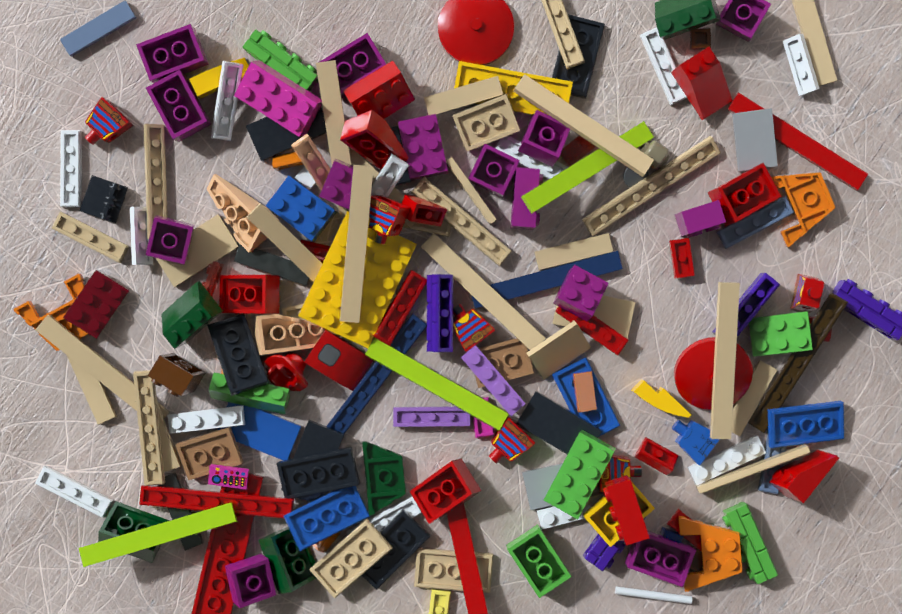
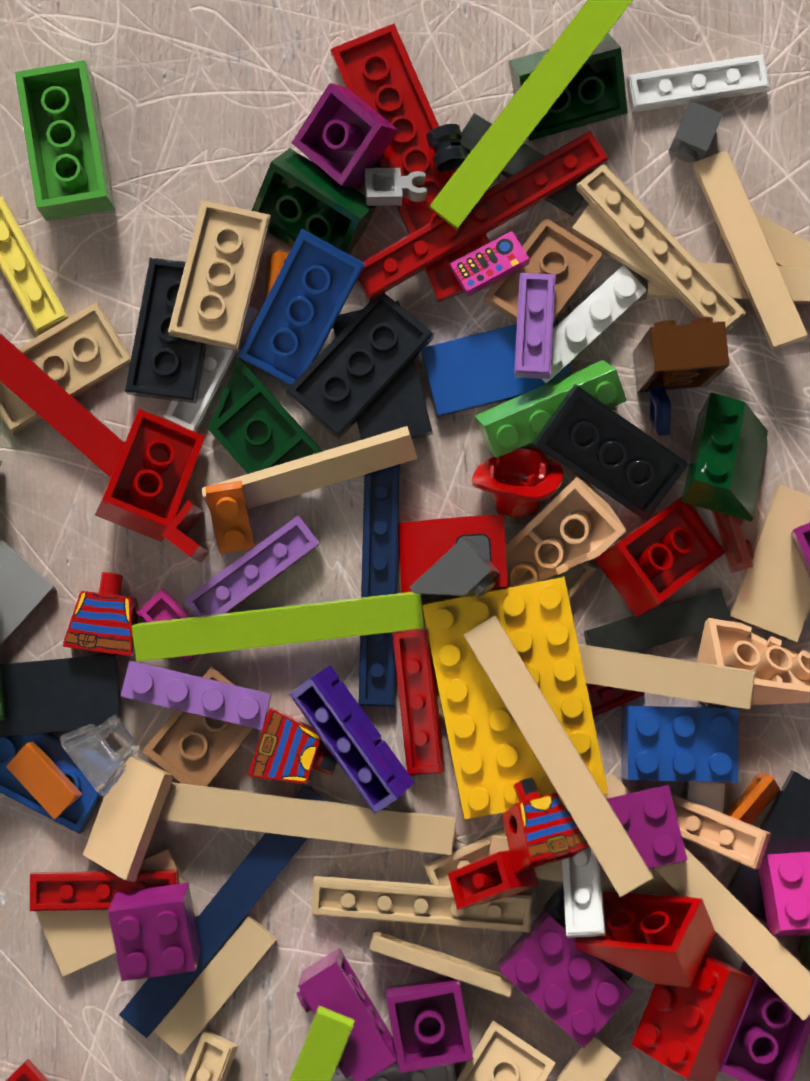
camera: 145 degrees right, 5 degrees down
(93, 469) = (695, 132): none -> dark grey brick
(109, 399) = (749, 251): none -> tan tile
(202, 356) = (660, 411): none -> clear blue tile
(209, 542) = (447, 147): none -> black wheel
(229, 434) = (534, 326): none -> medium lavender tile
(247, 543) = (388, 187): none -> light grey plate
(341, 350) = (459, 572): none -> dark grey slope
(375, 441) = (326, 468): none -> tan tile
(423, 447) = (230, 517): none -> orange plate
(451, 453) = (180, 527): none -> red panel
(554, 385) = (96, 757): none -> clear piece

